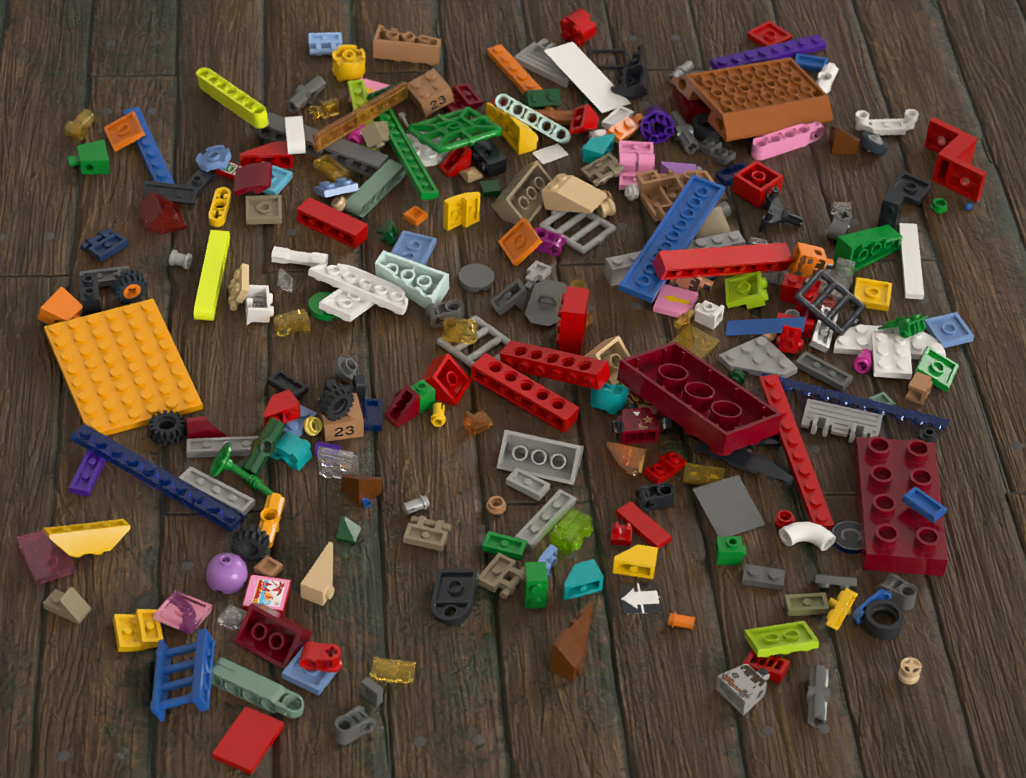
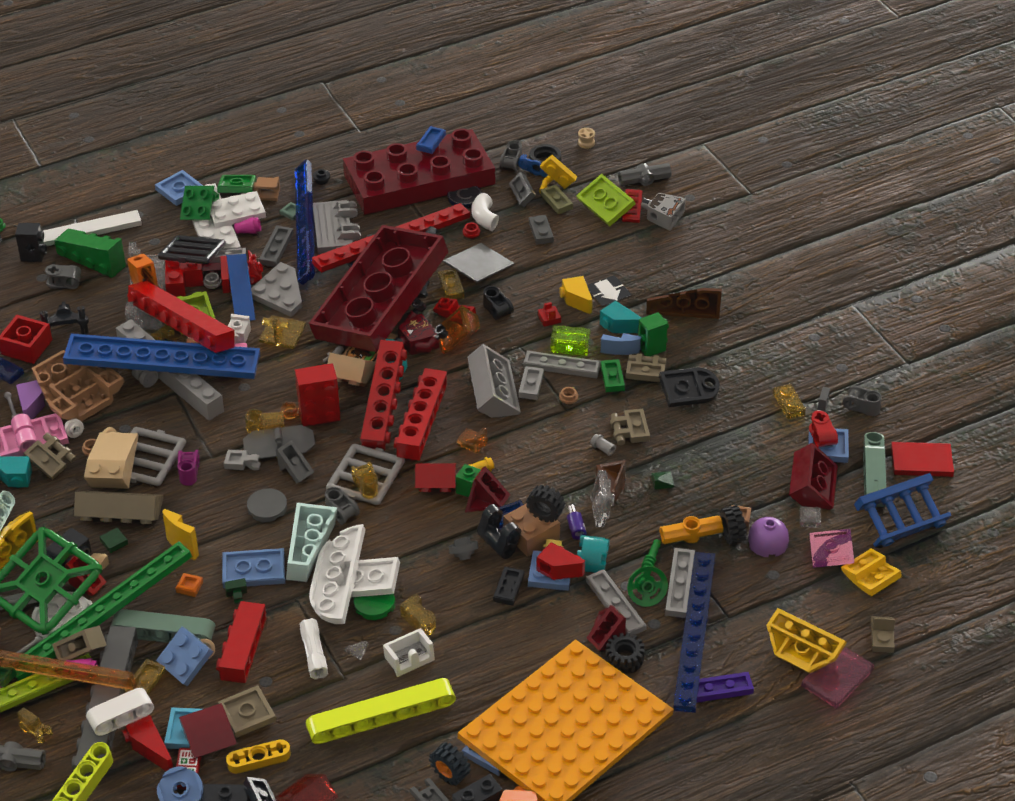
camera: 110 degrees left, 0 degrees up
(180, 259) = (371, 749): light grey bush -> none
(238, 286) = (395, 664): tan plate -> none
(268, 437) = (610, 559): dark green piece -> none
(269, 591) = (770, 503): tile -> none
(318, 582) = (727, 472): tan slope -> none
(520, 241) = (204, 478): orange plate -> none
(550, 153) = (22, 507): white sticker -> none
(643, 525) = (529, 306): red tile -> none
(681, 621) = (622, 260): orange pin -> none
(729, 550) = (530, 249): green brick -> none
(737, 376) = (315, 294): dark green plate -> none
(836, 206) = (35, 282): clear tile -> none
(873, 293) = (149, 240): yellow tile -> none

